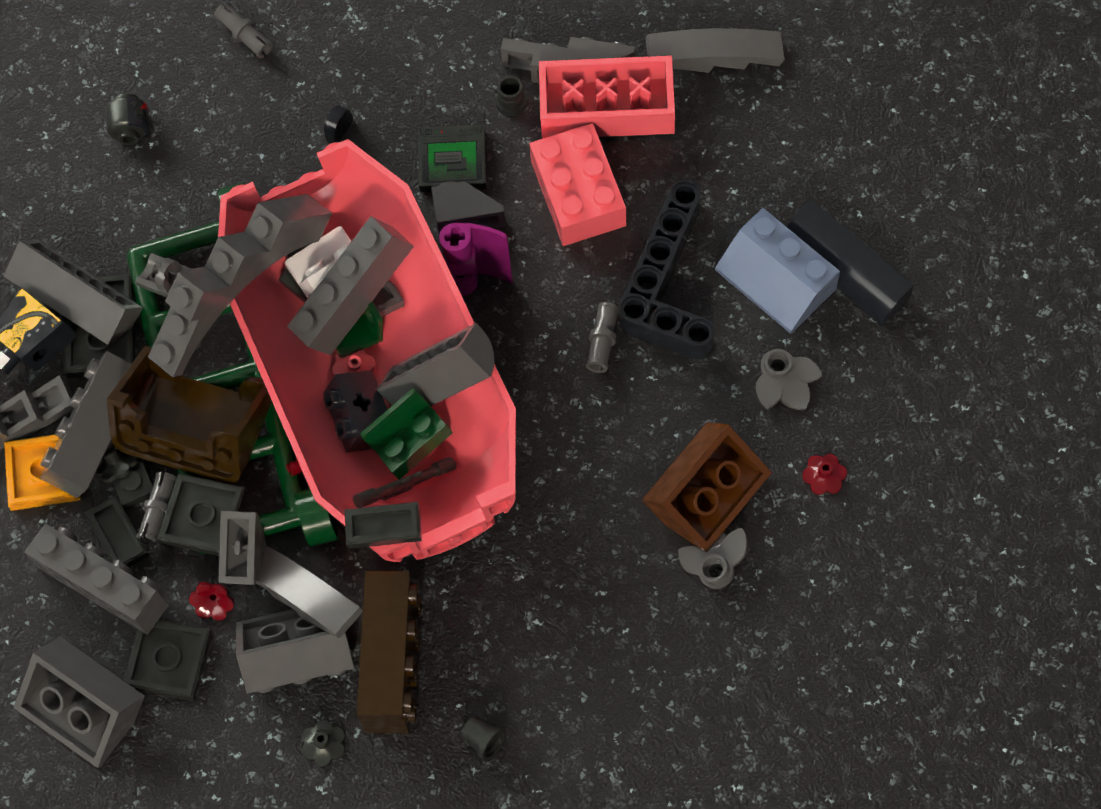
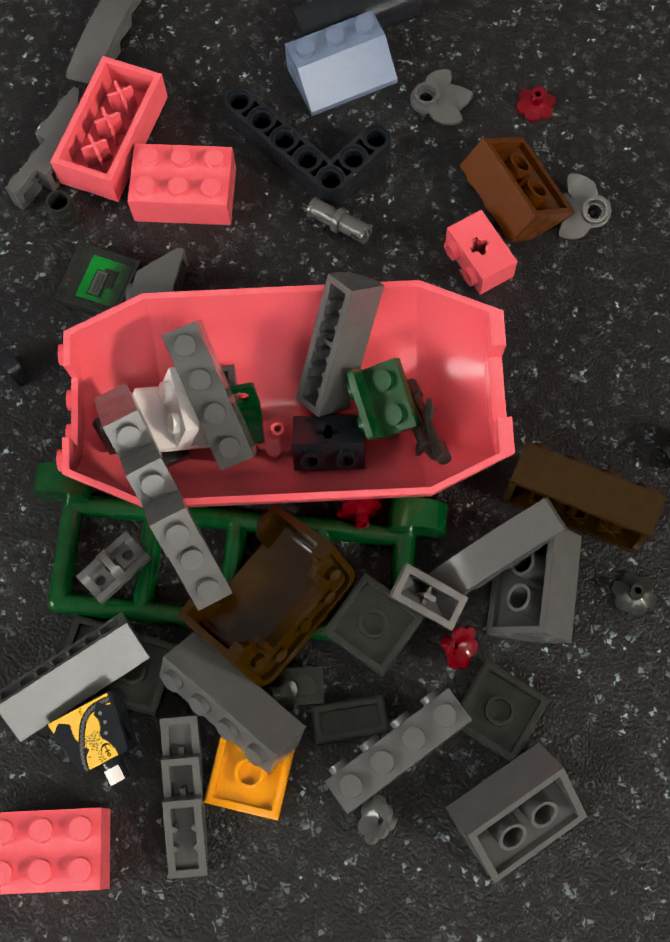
camera: 70 degrees left, 5 degrees up
(34, 587) = (376, 819): none -> dark grey plant
(156, 508) = (344, 668): dark grey pin -> none
(383, 525) = (489, 437): pearl dark grey tile -> none
(474, 250) = (225, 265): magenta panel -> none
(616, 494) = (479, 252): none -> coral brick

